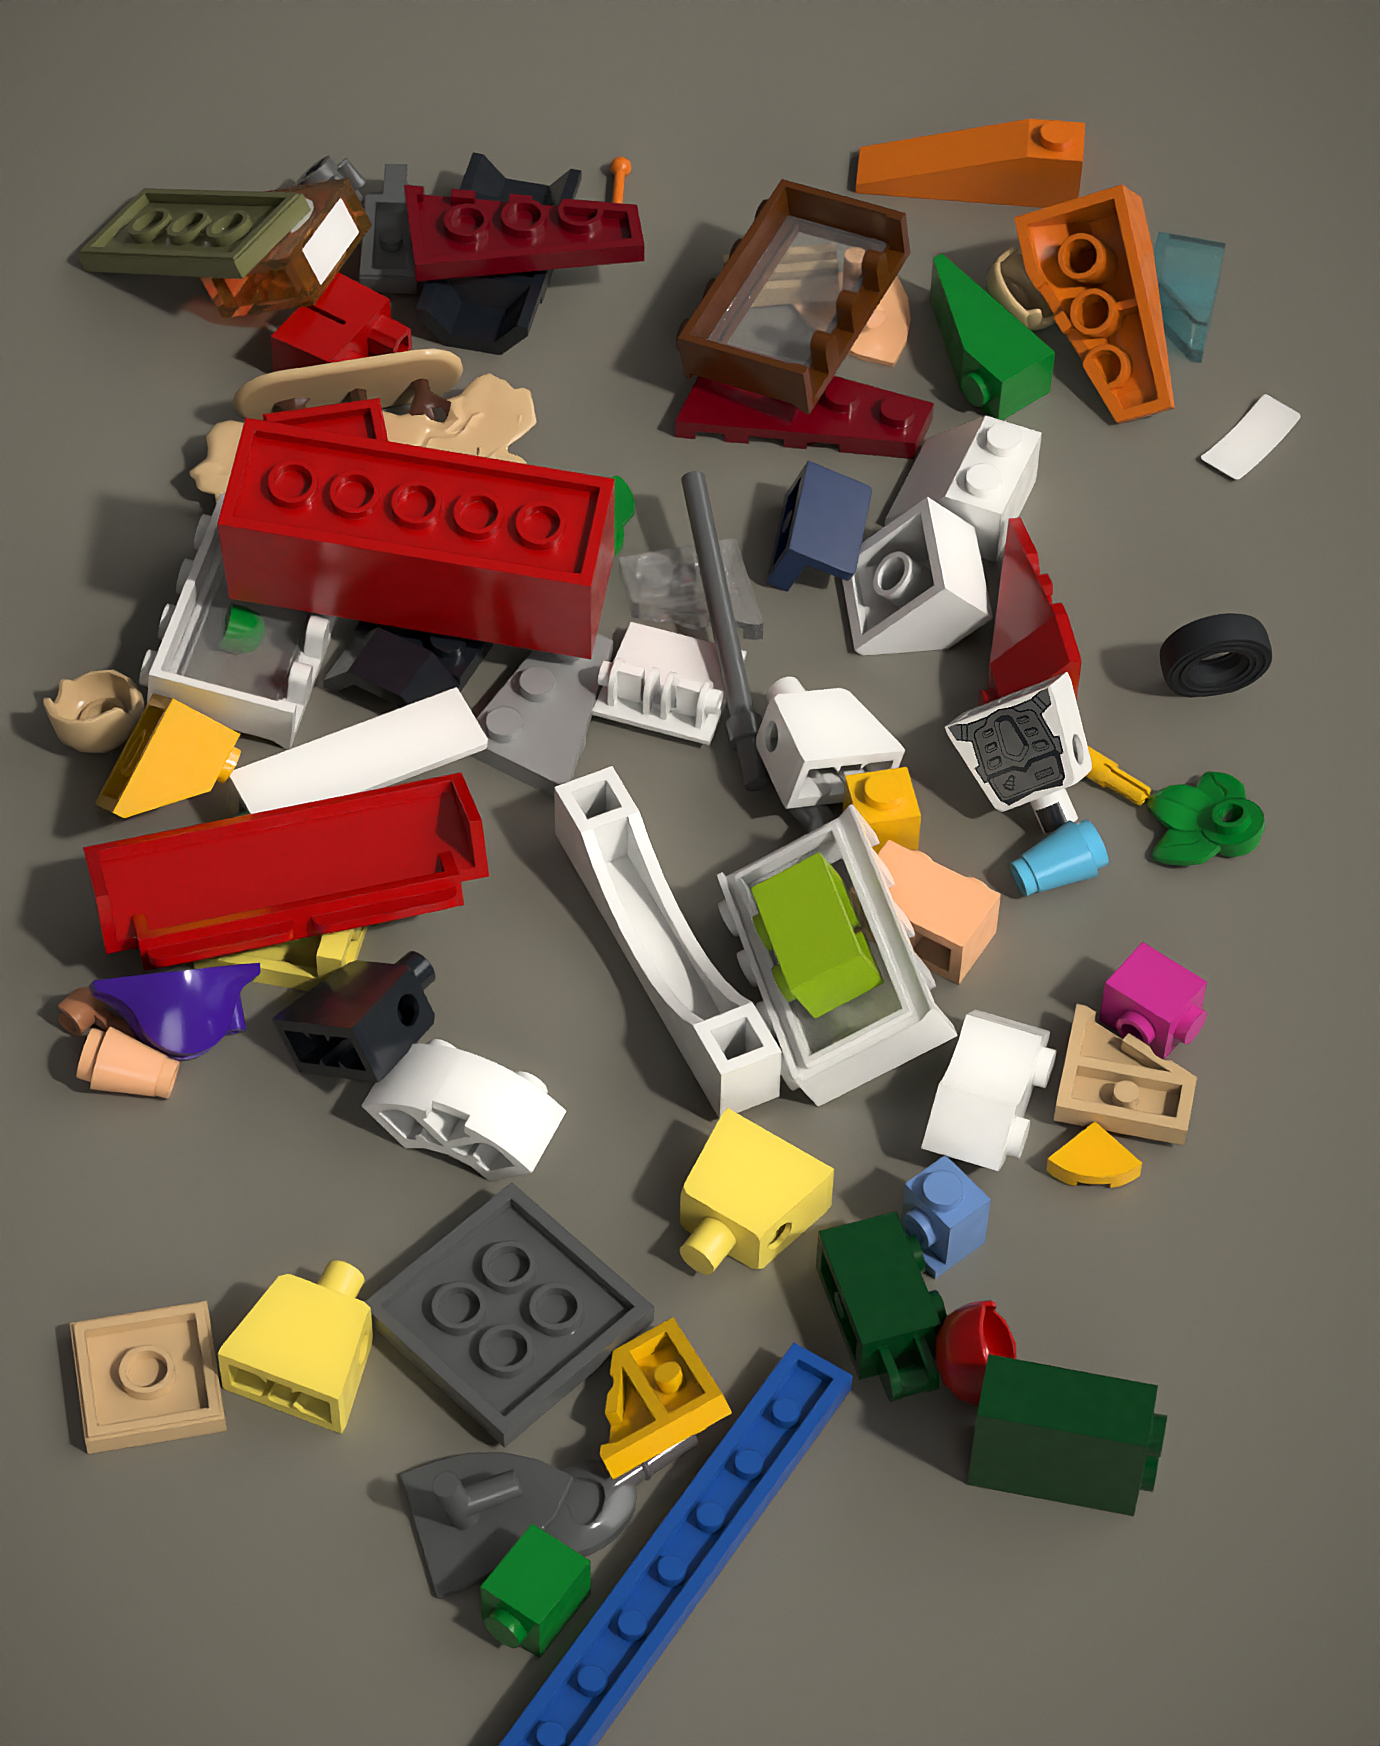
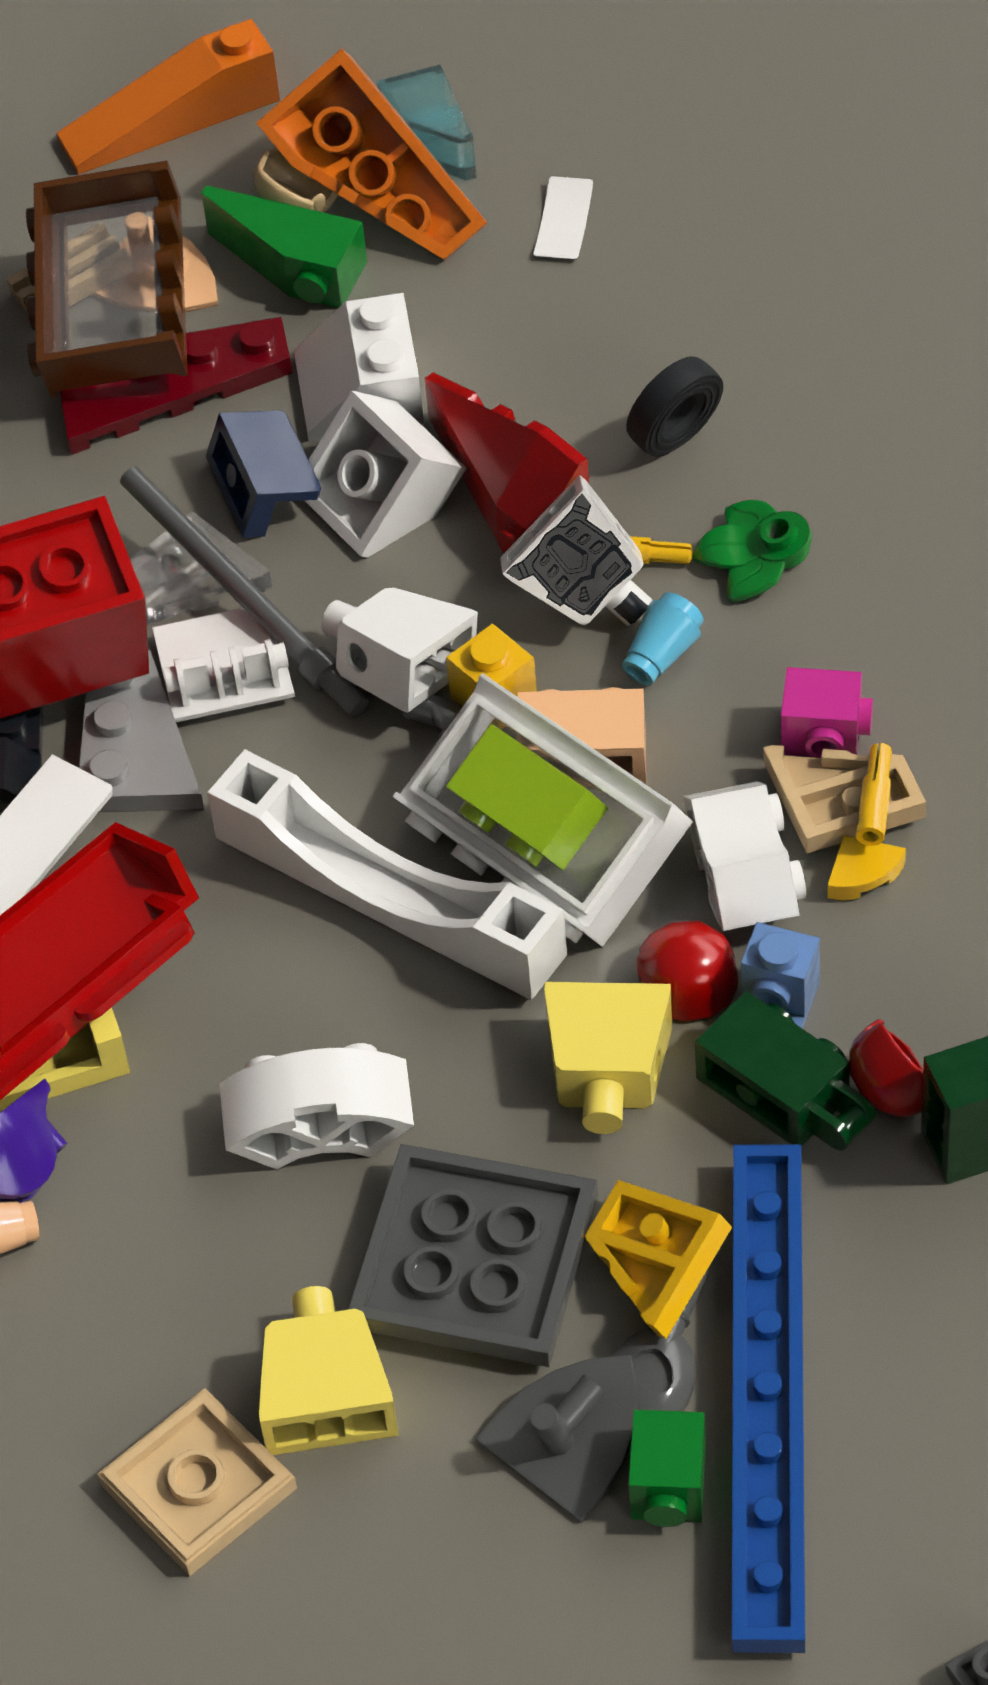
camera: 25 degrees left, 0 degrees up
(359, 1019) = (171, 1079): black torso -> none
(871, 1165) = (696, 965): none -> red hair
(1140, 1100) = (875, 797): none -> yellow piece

